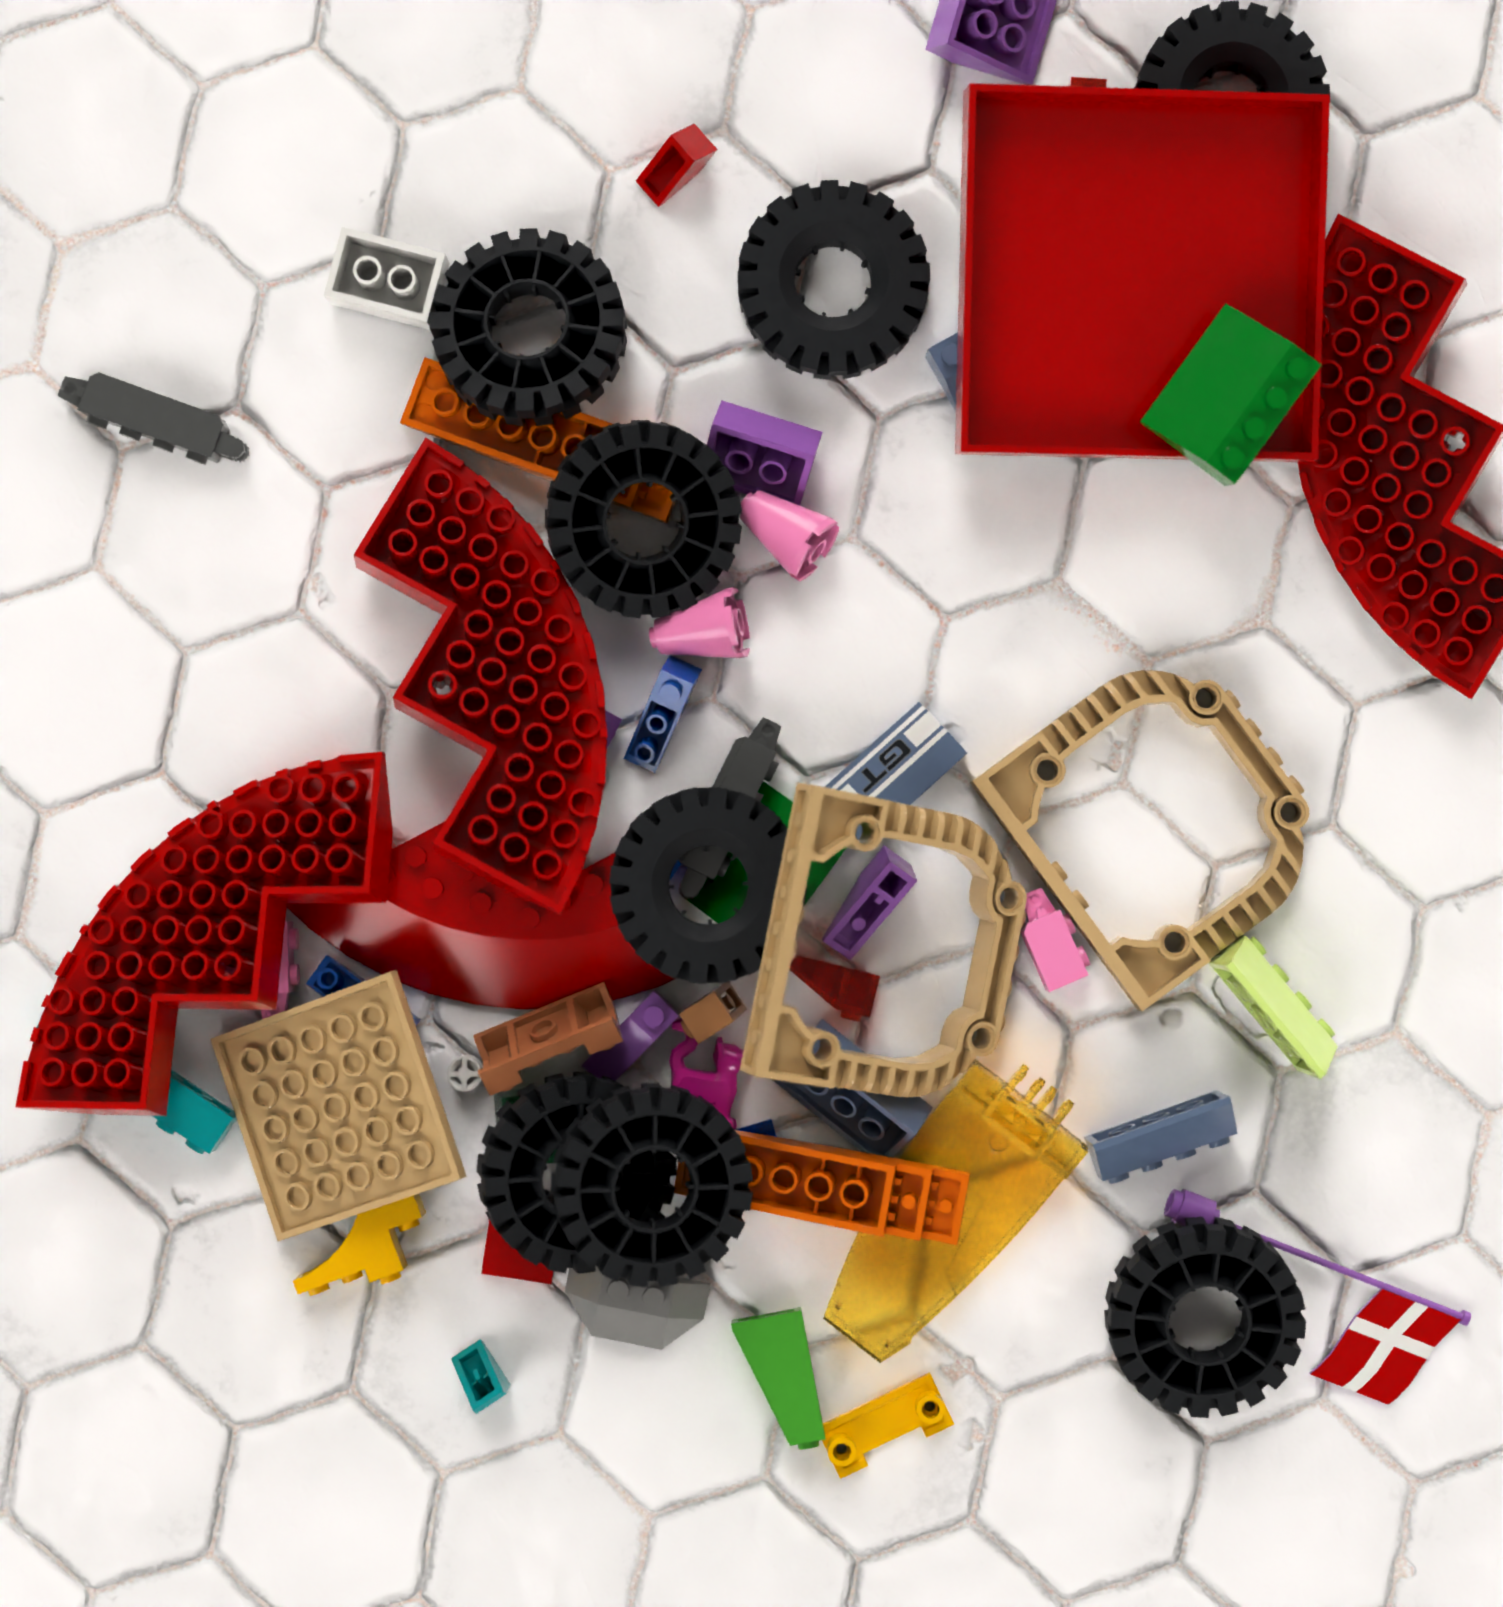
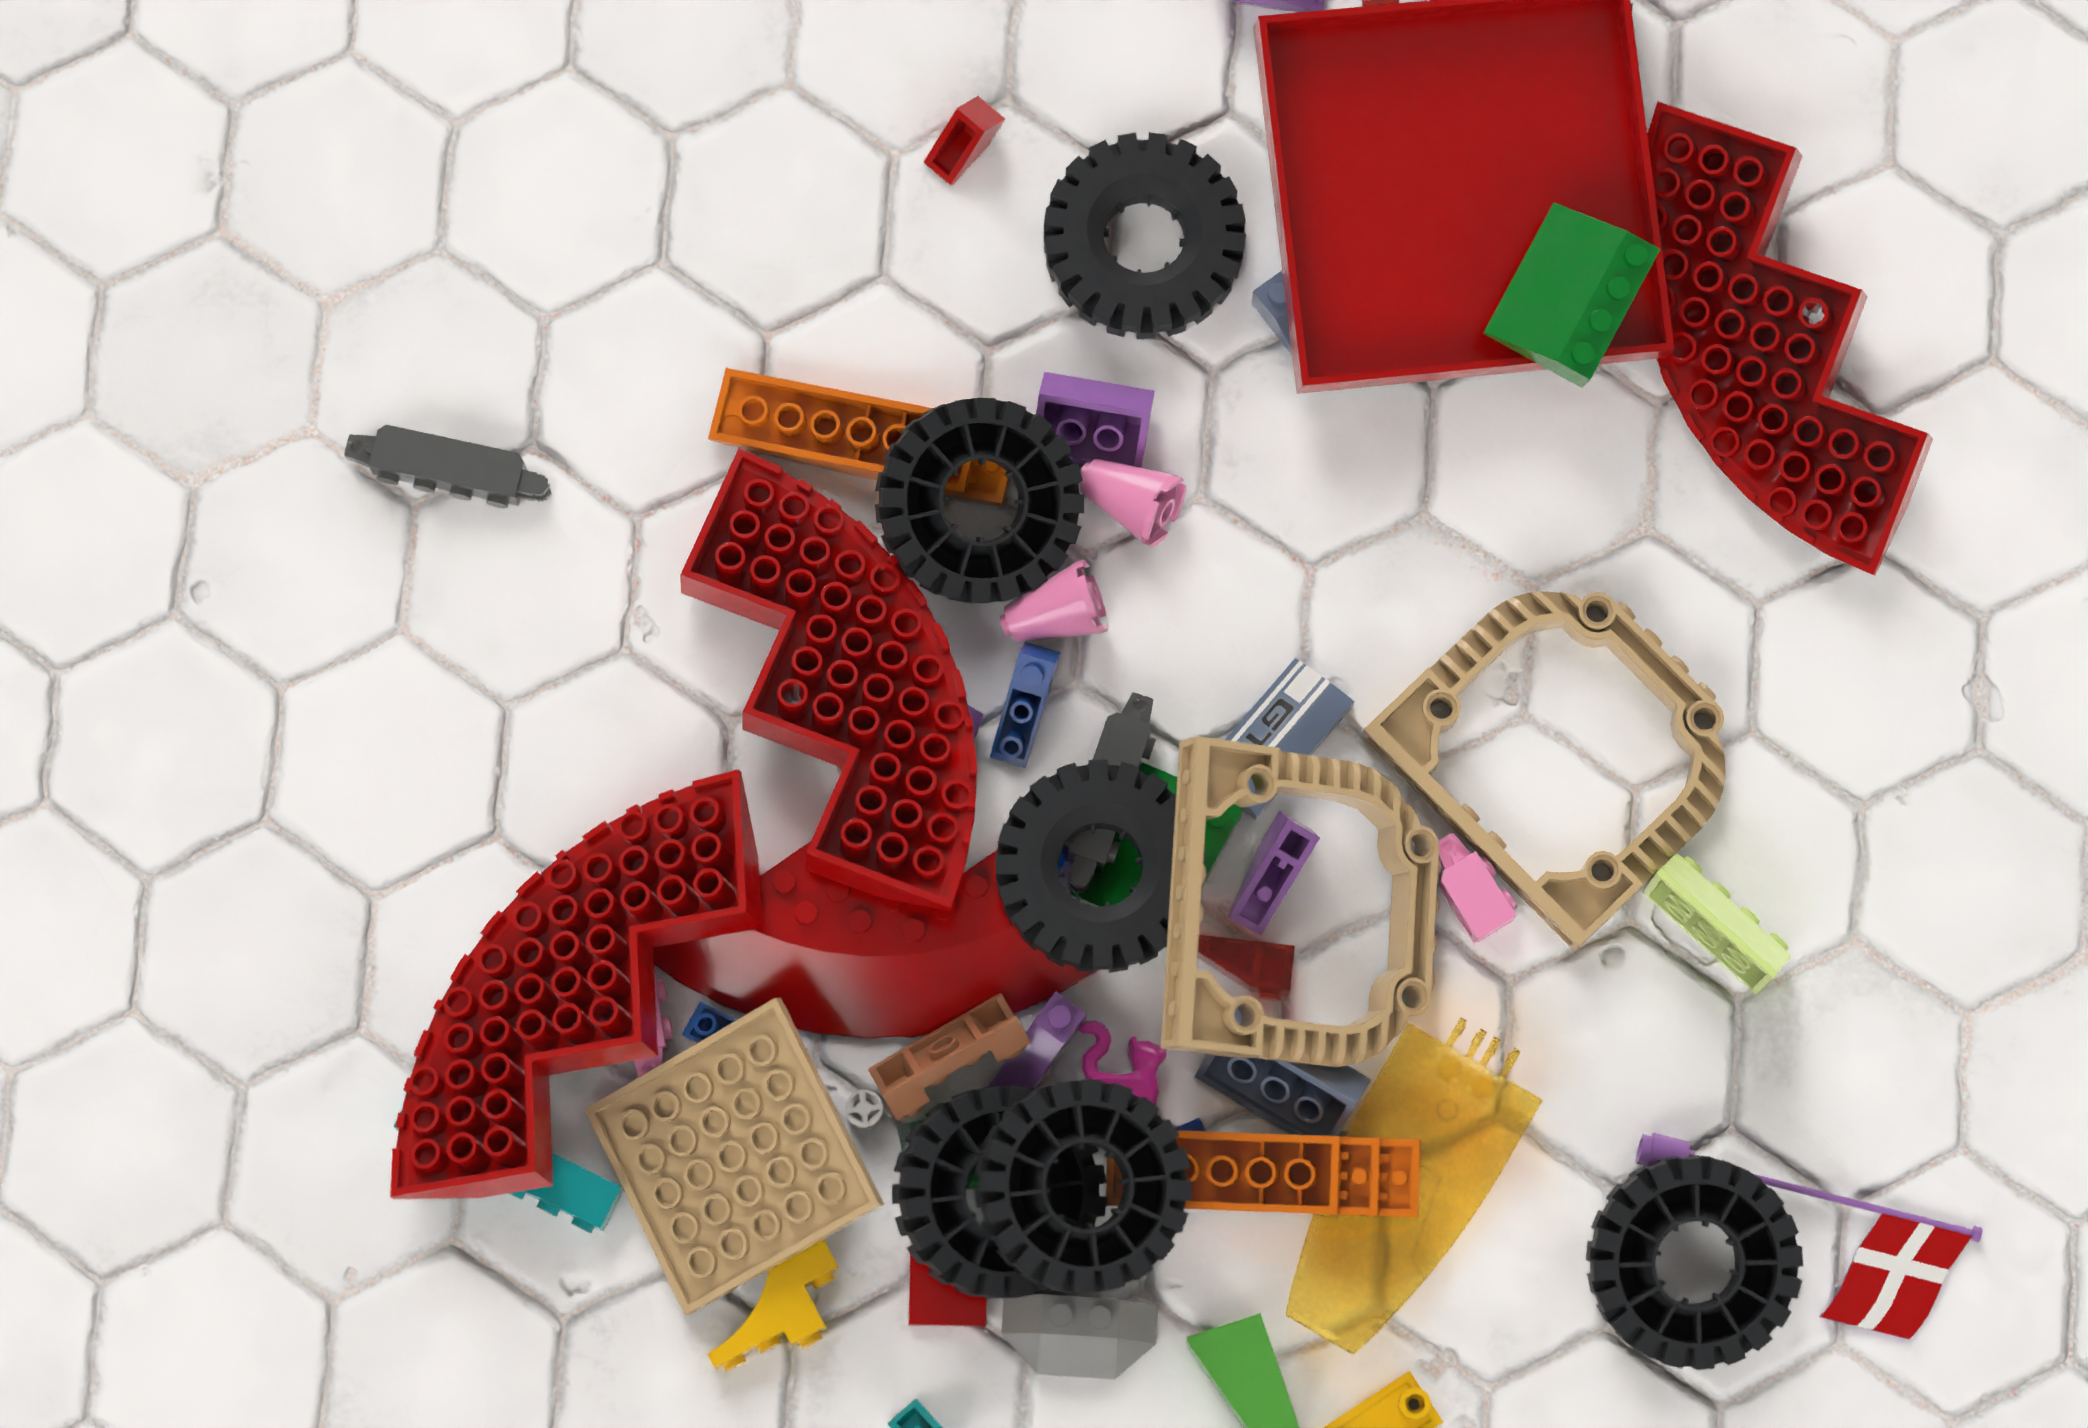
camera: 10 degrees left, 10 degrees down
(385, 277) = (677, 292): white brick -> none
(541, 382) = (846, 376): black tyre -> none
(712, 1012) = (1120, 1007): medium nougat slope -> none
(1162, 1135) = (1620, 1077): sand blue slope -> none

